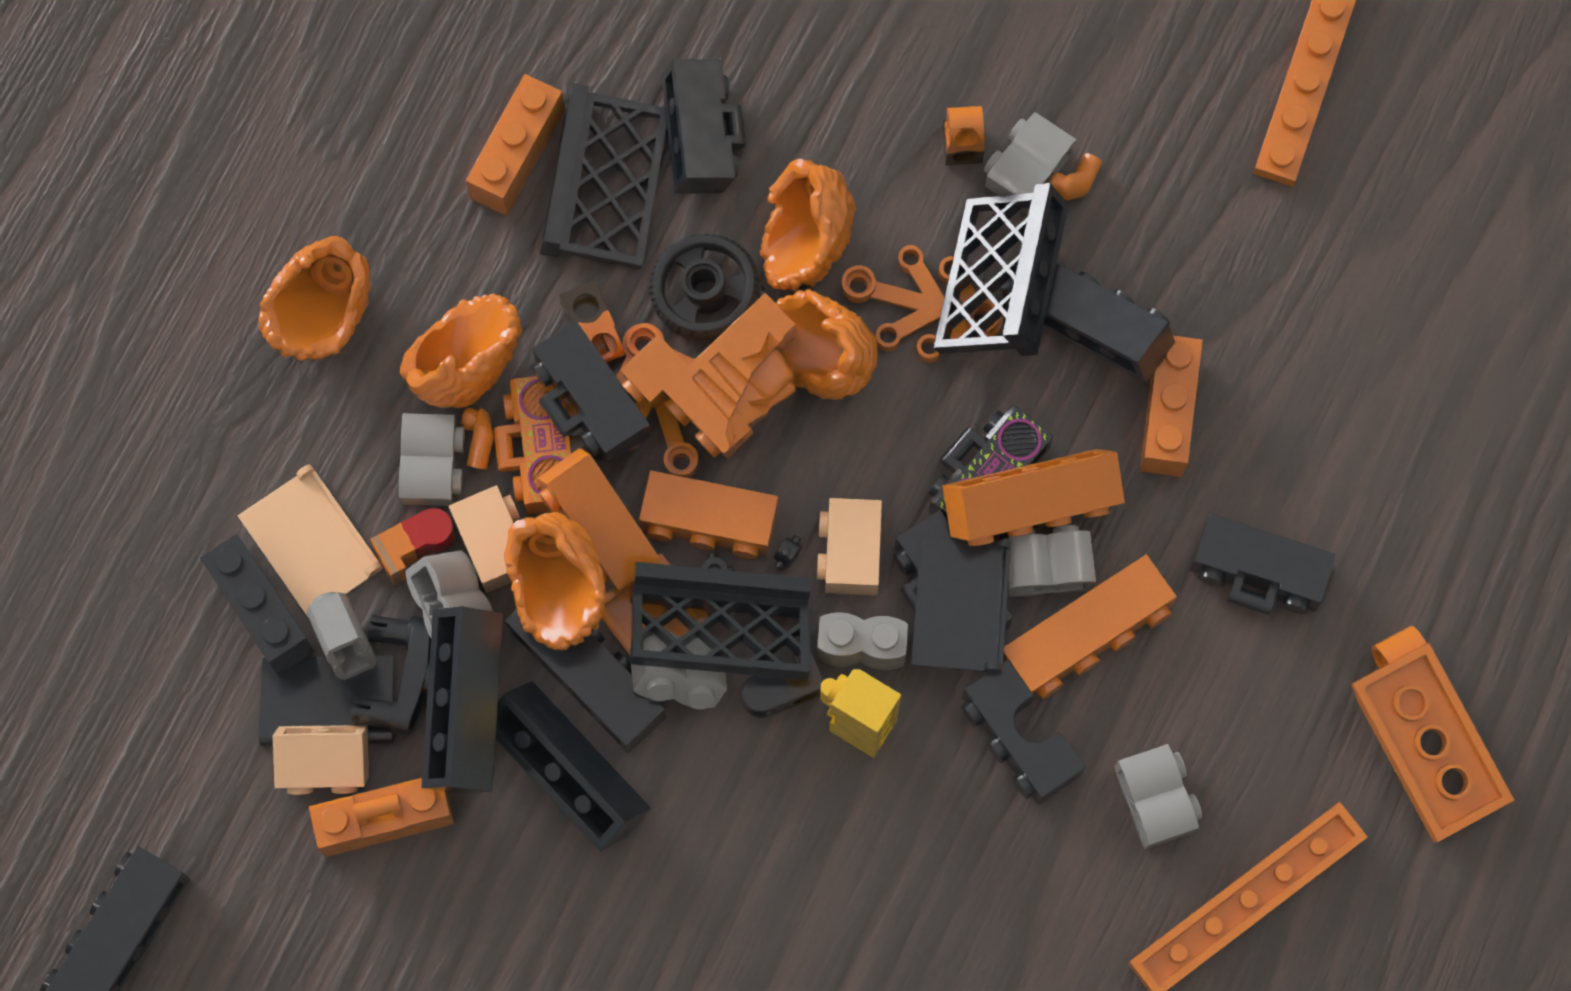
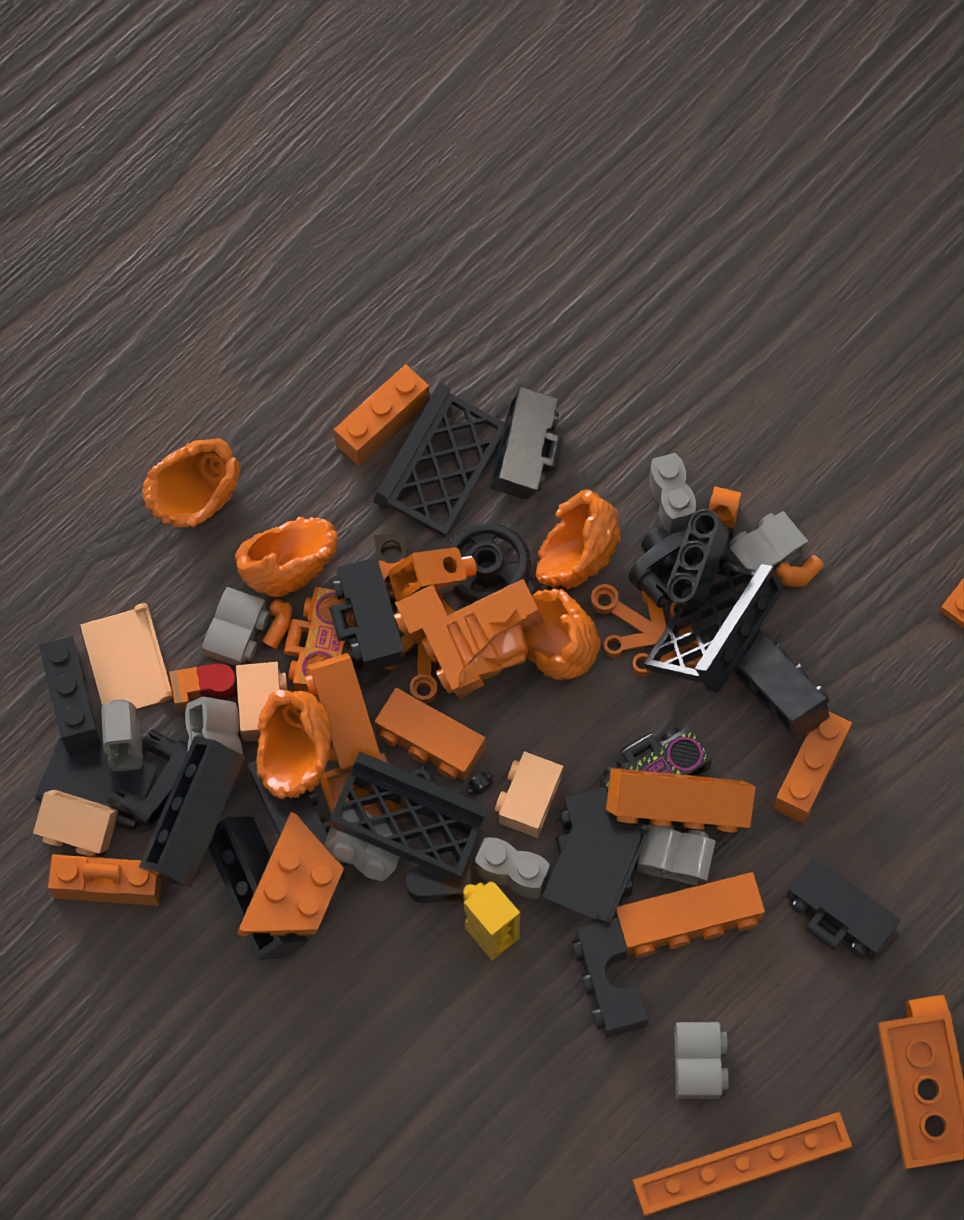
camera: 20 degrees right, 5 degrees down
(614, 748) = (294, 885): none -> orange wing
(643, 317) = (436, 567): none -> orange torso
(902, 136) = (671, 492): none -> light grey brick
(914, 206) = (659, 559): none -> black connector
(947, 186) = (693, 545): none -> black beam

